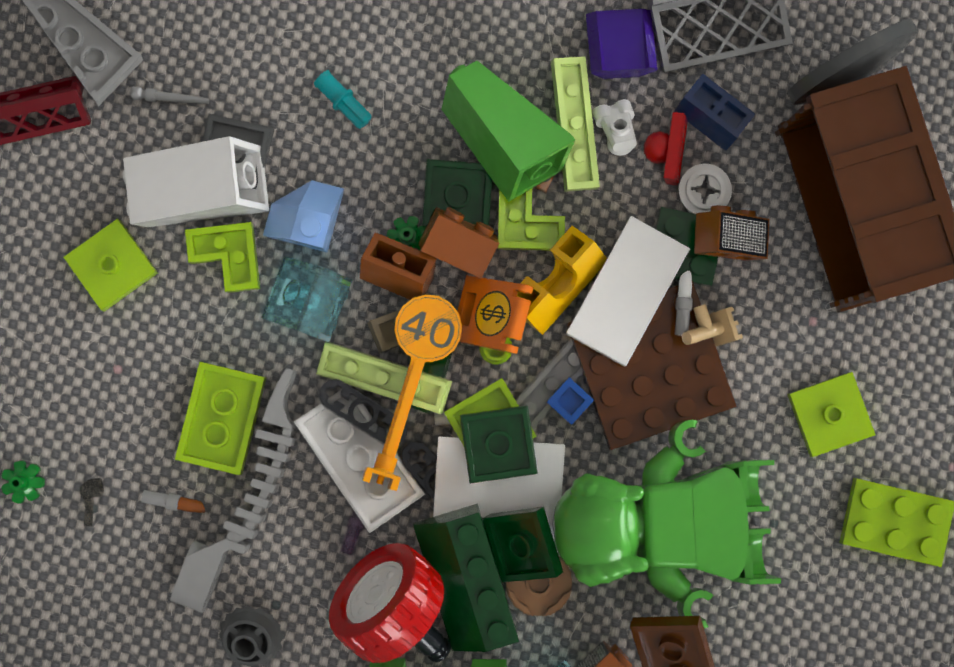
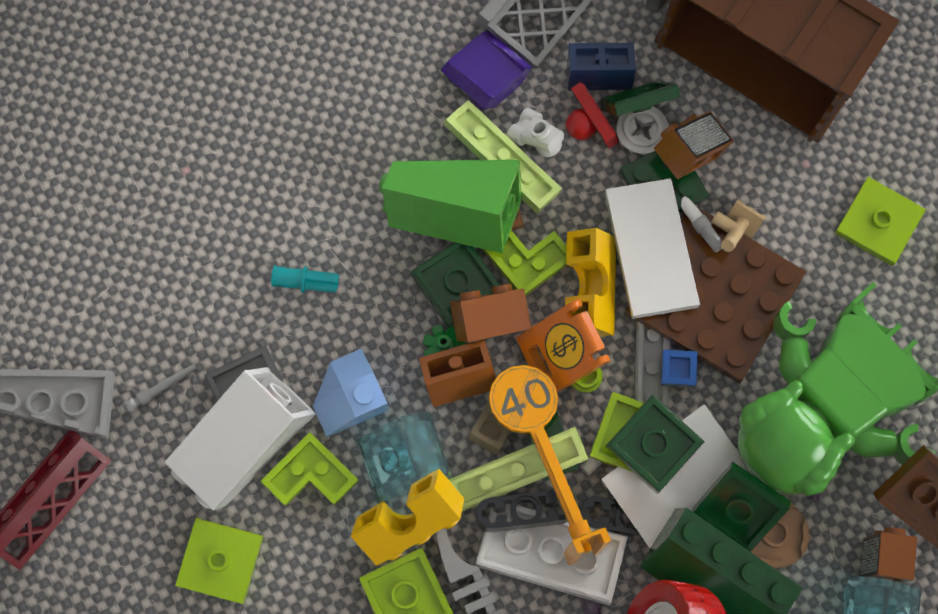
camera: 45 degrees left, 10 degrees down
(285, 354) = (387, 534): none -> yellow arch
(721, 163) = (639, 98): none -> dark green plate

